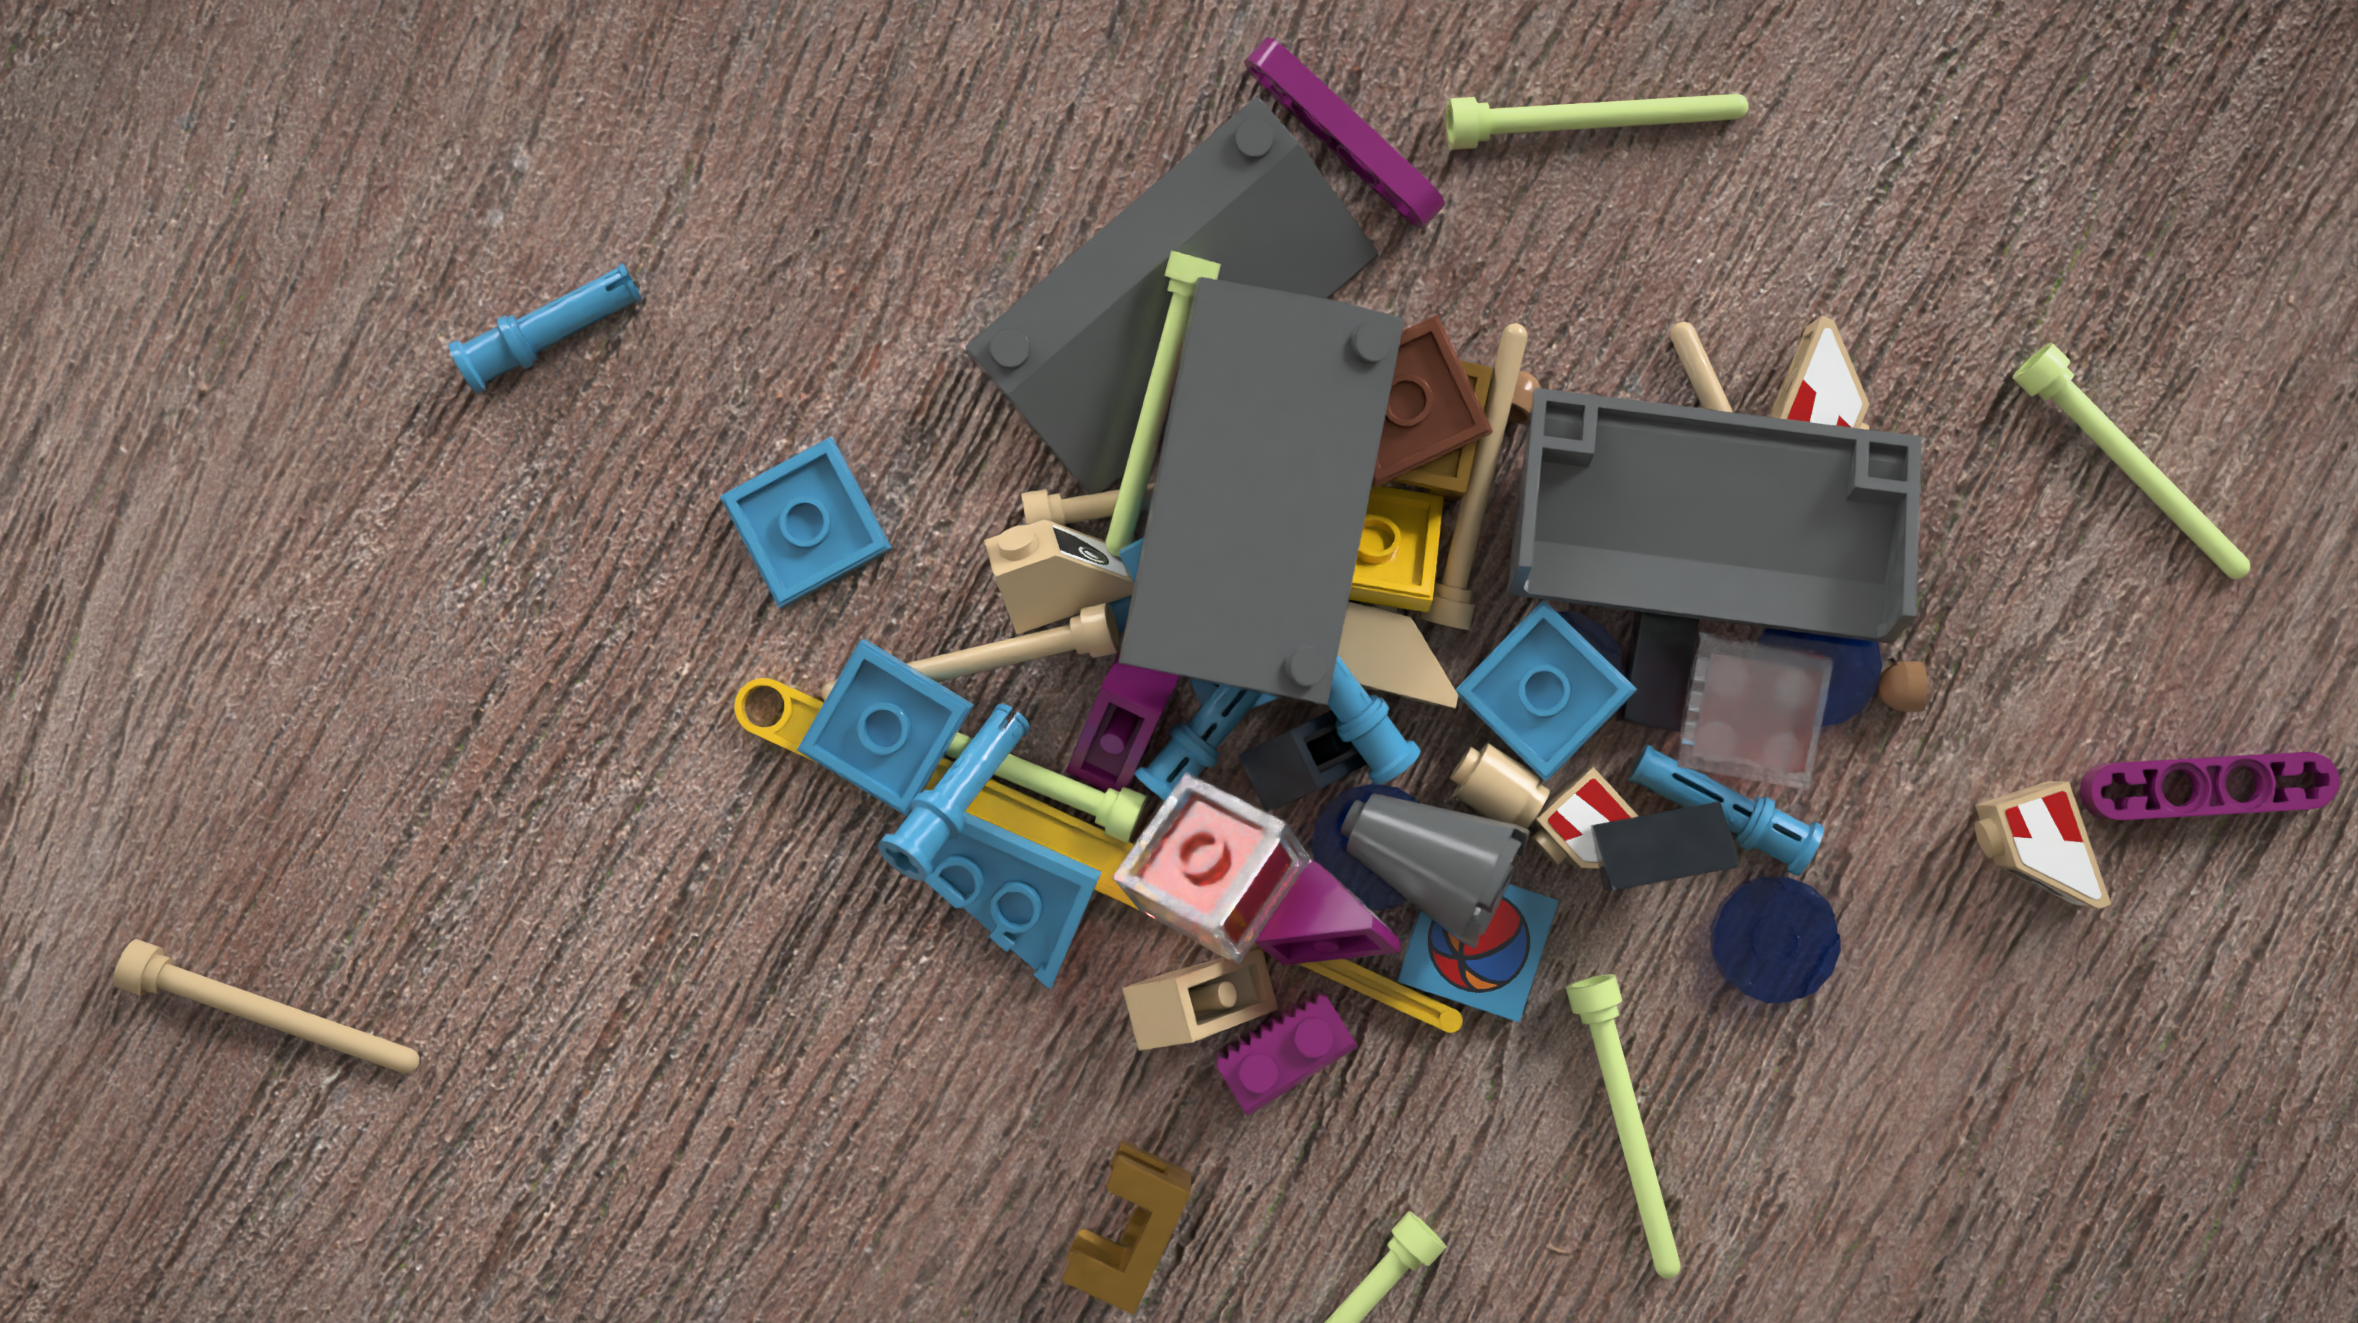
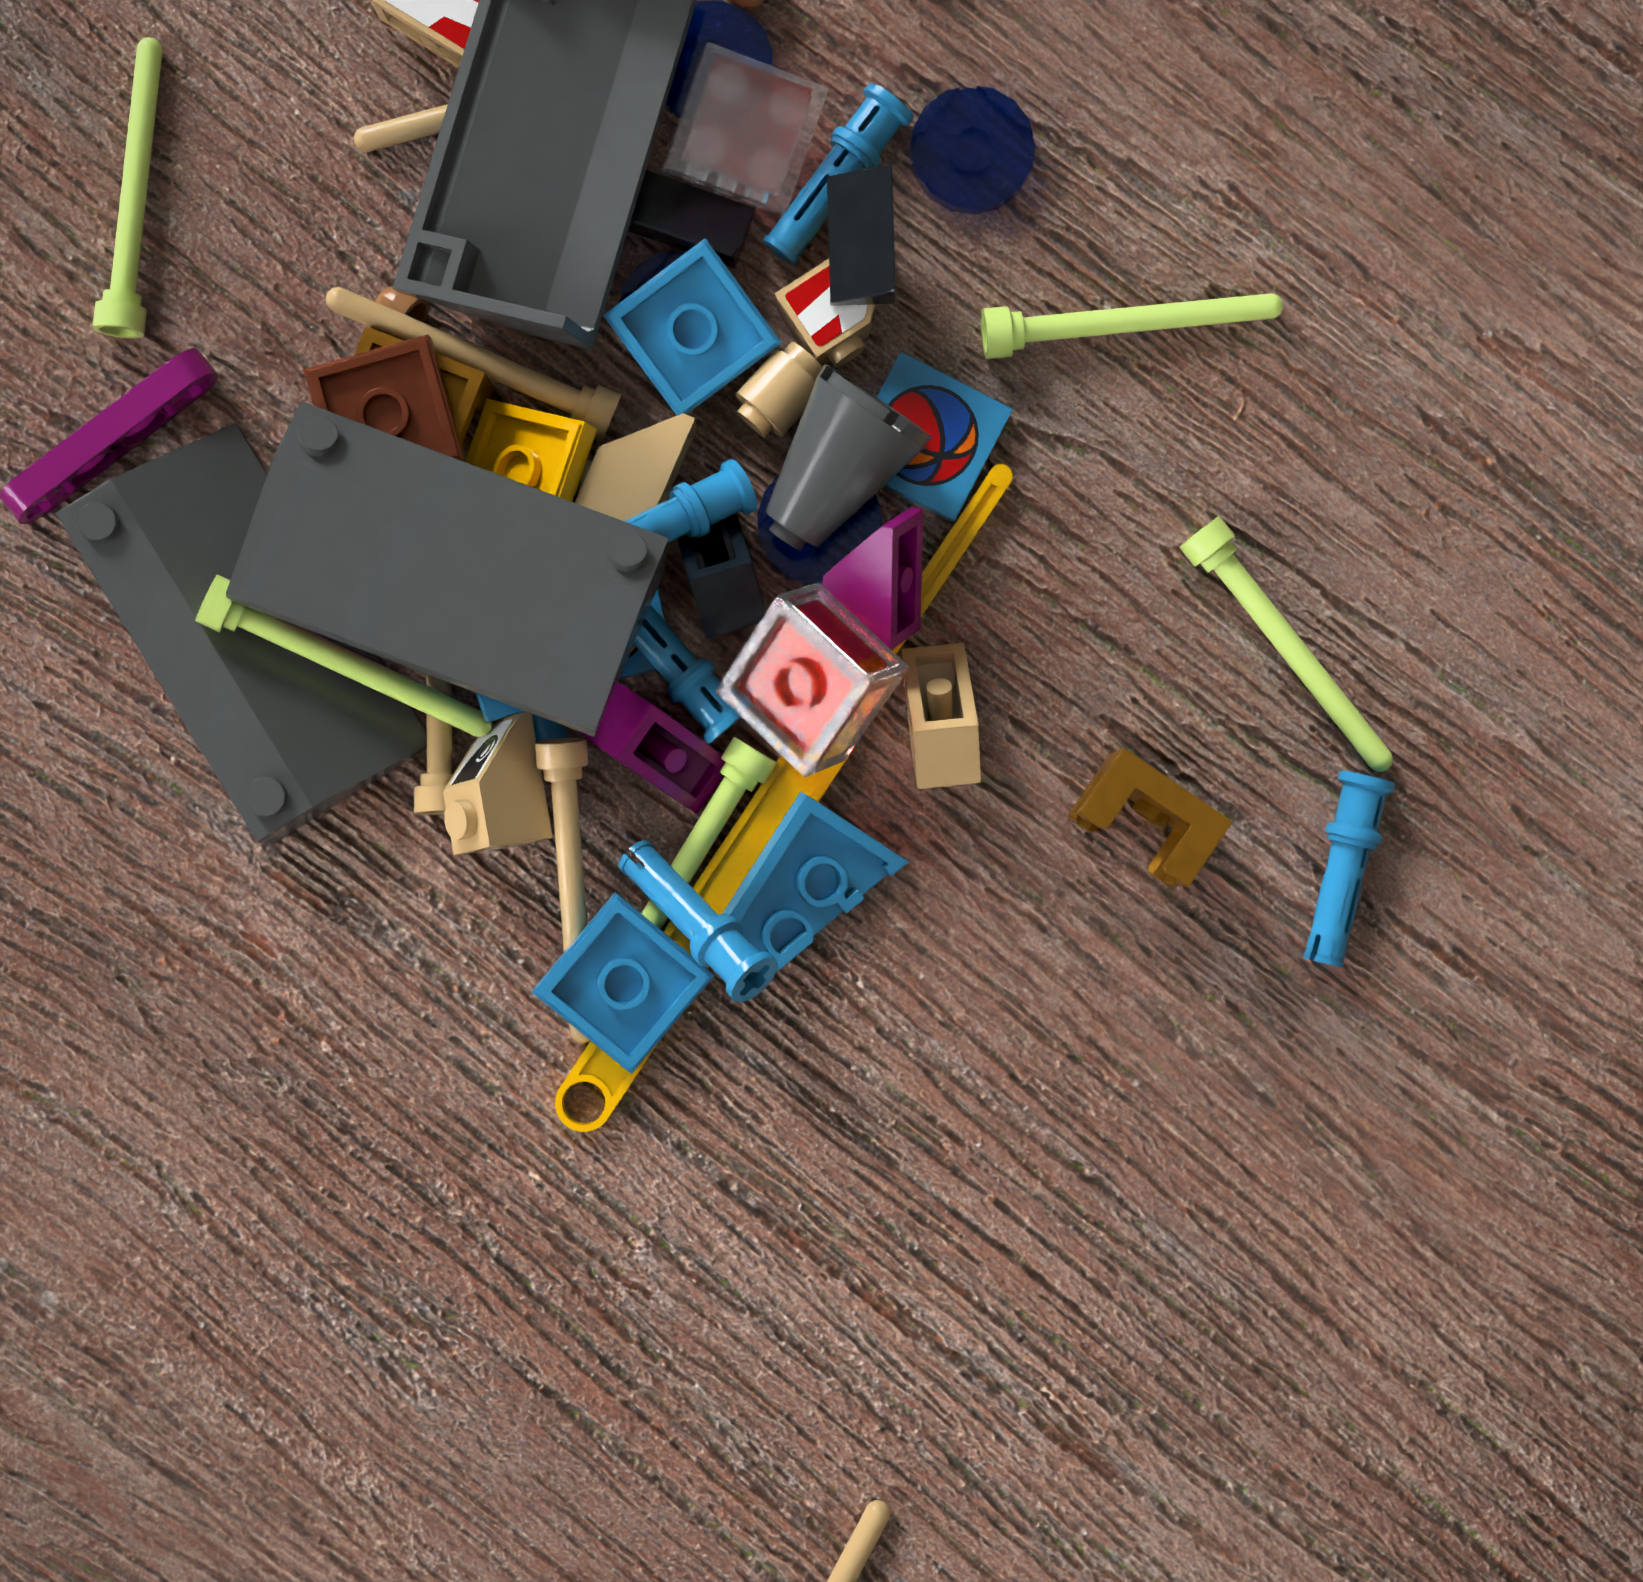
camera: 80 degrees left, 0 degrees up
(519, 340) = (176, 1292): dark azure pin -> none
(806, 522) = (408, 1032): dark azure tile -> none
(1284, 1051) = (1004, 639): magenta brick -> none

